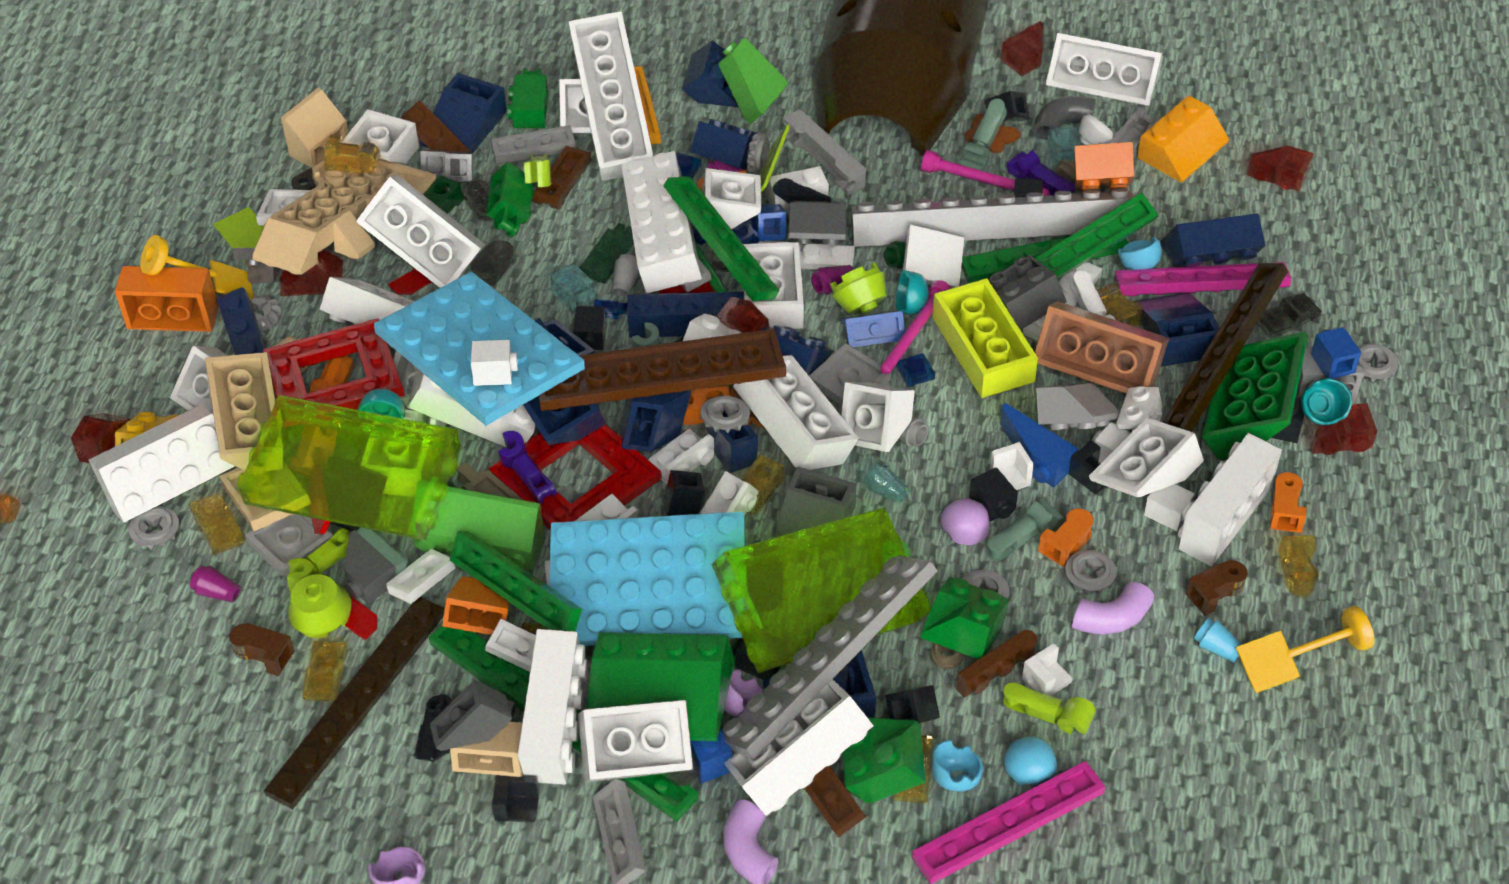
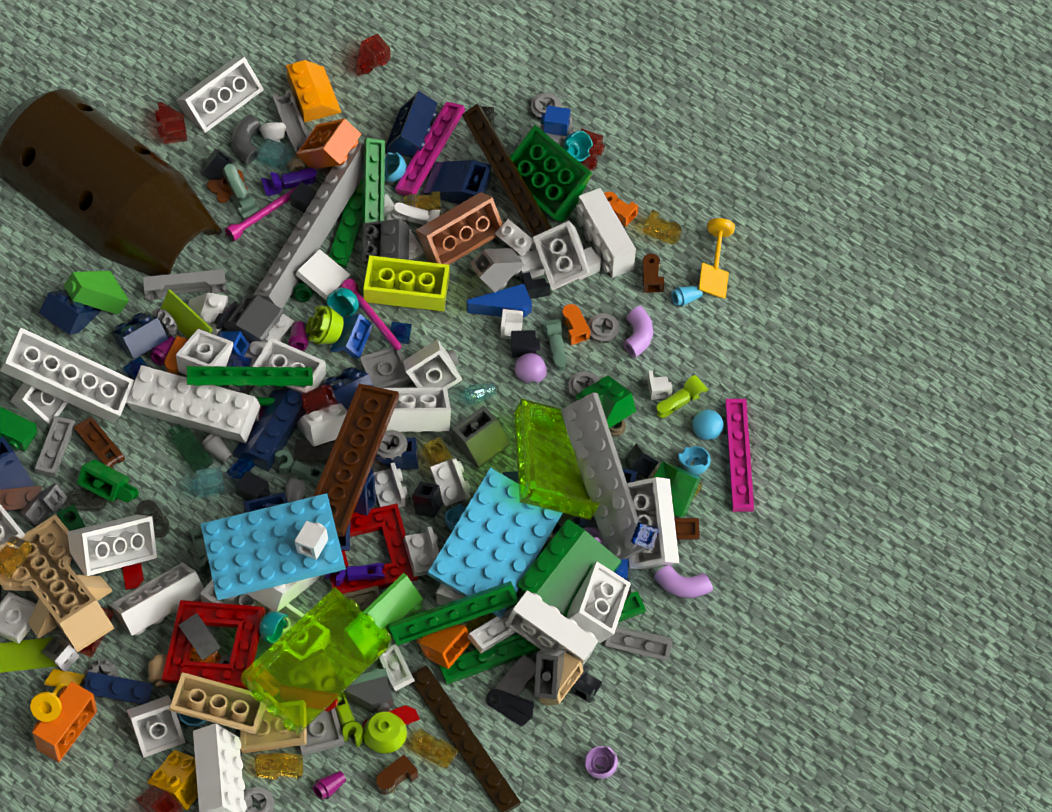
camera: 65 degrees left, 10 degrees up
(326, 348) = (199, 636): none -> flat silver slope
(538, 170) = (93, 452): lime piece -> none
(760, 736) = (645, 535): none -> clear blue plate
(997, 662) = (643, 420): reddish brown plate -> none

